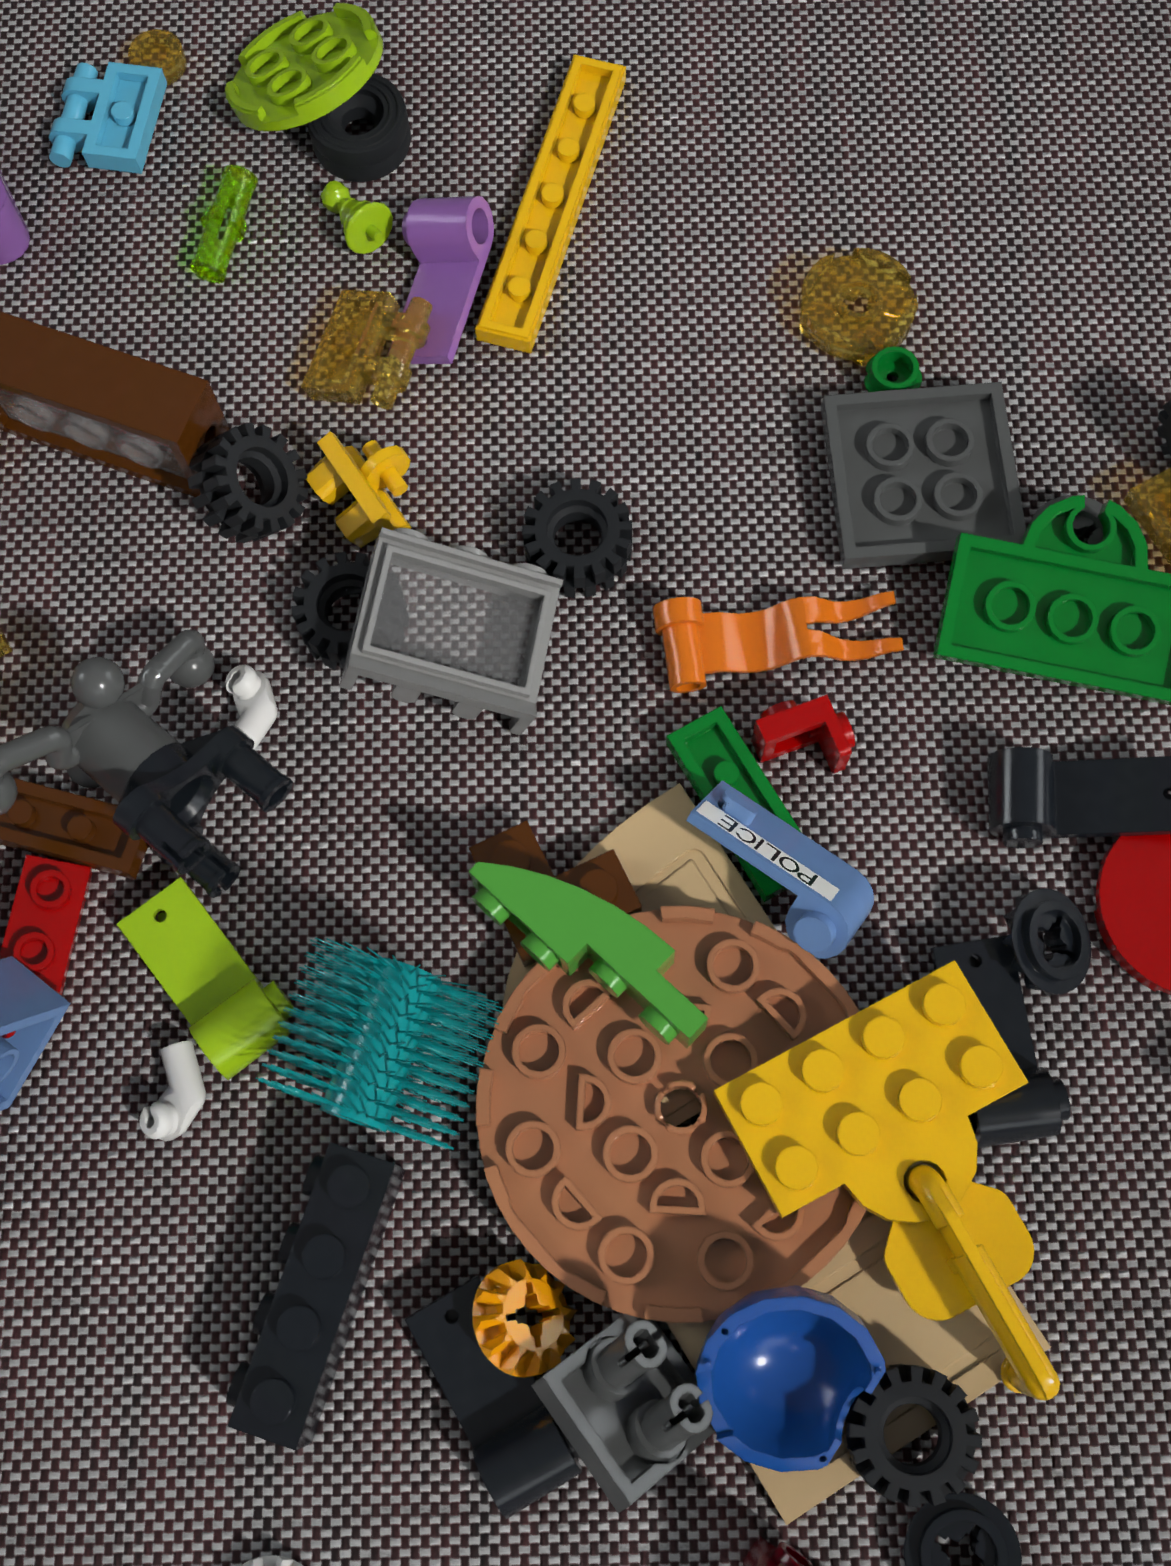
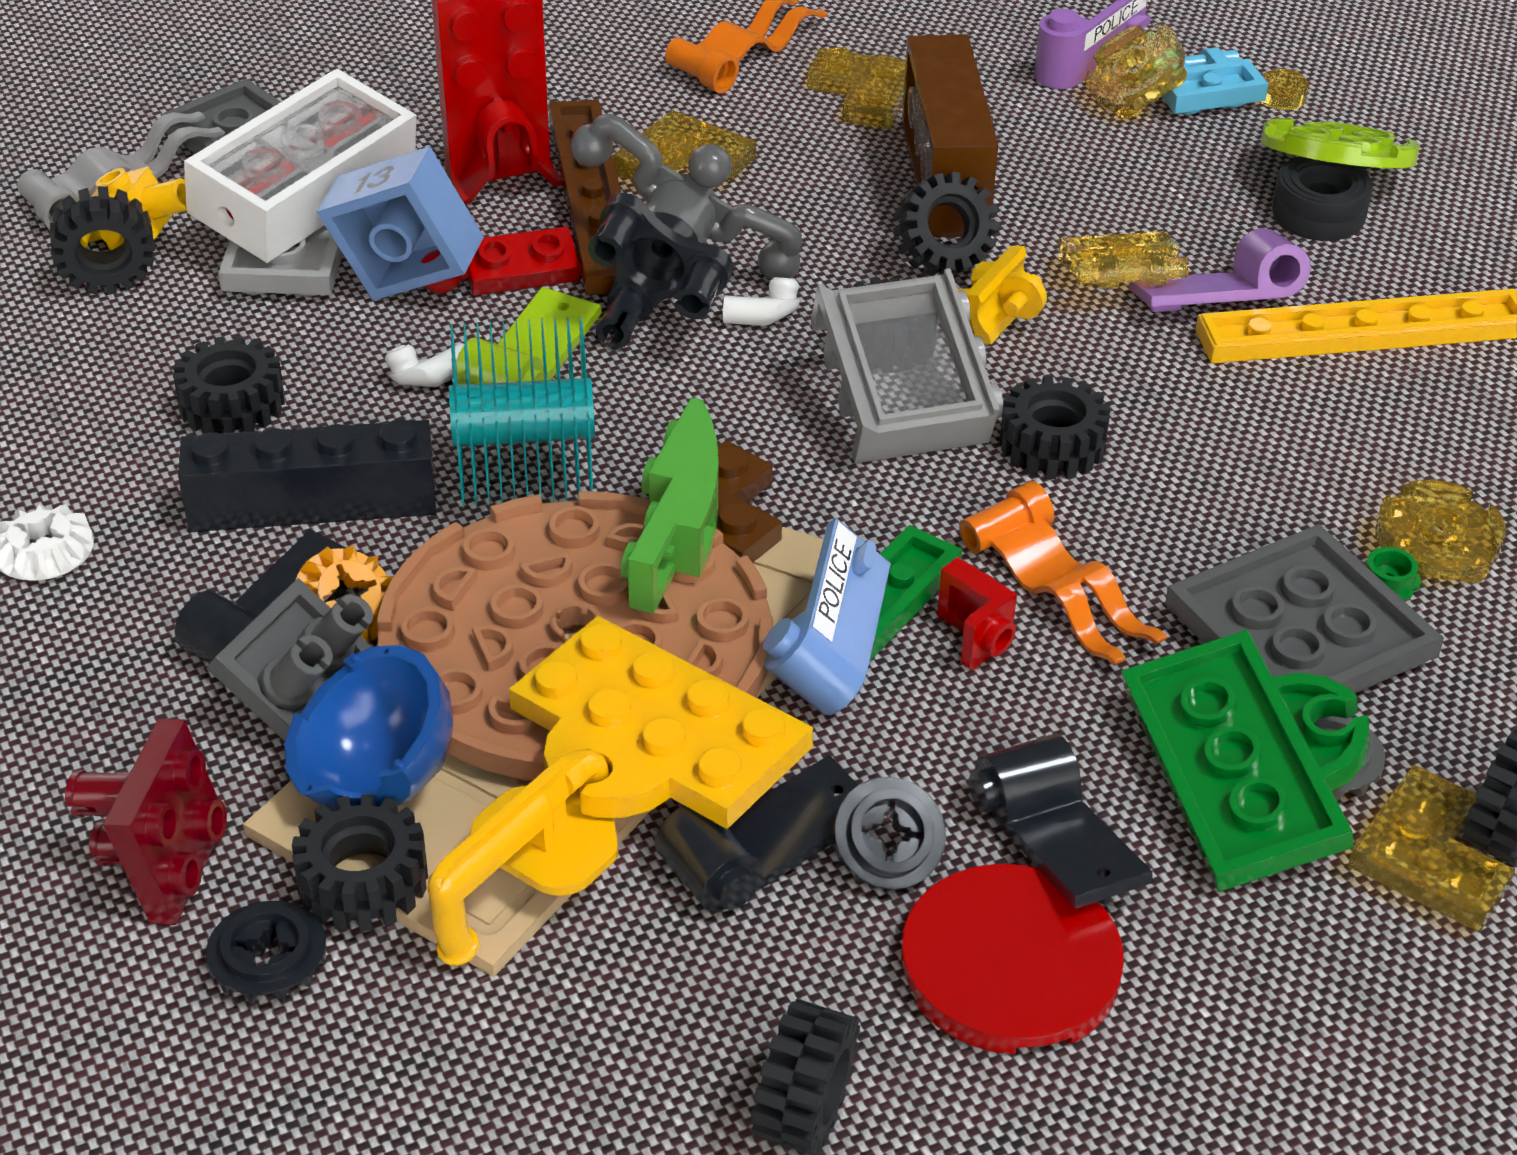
camera: 60 degrees right, 30 degrees down
(65, 1324) = (229, 386): none -> black tyre
(100, 152) = (1159, 69): none -> clear yellow plate
(233, 194) = (1167, 160): clear neon green pin -> none
(364, 222) = (1233, 221): lime piece -> none

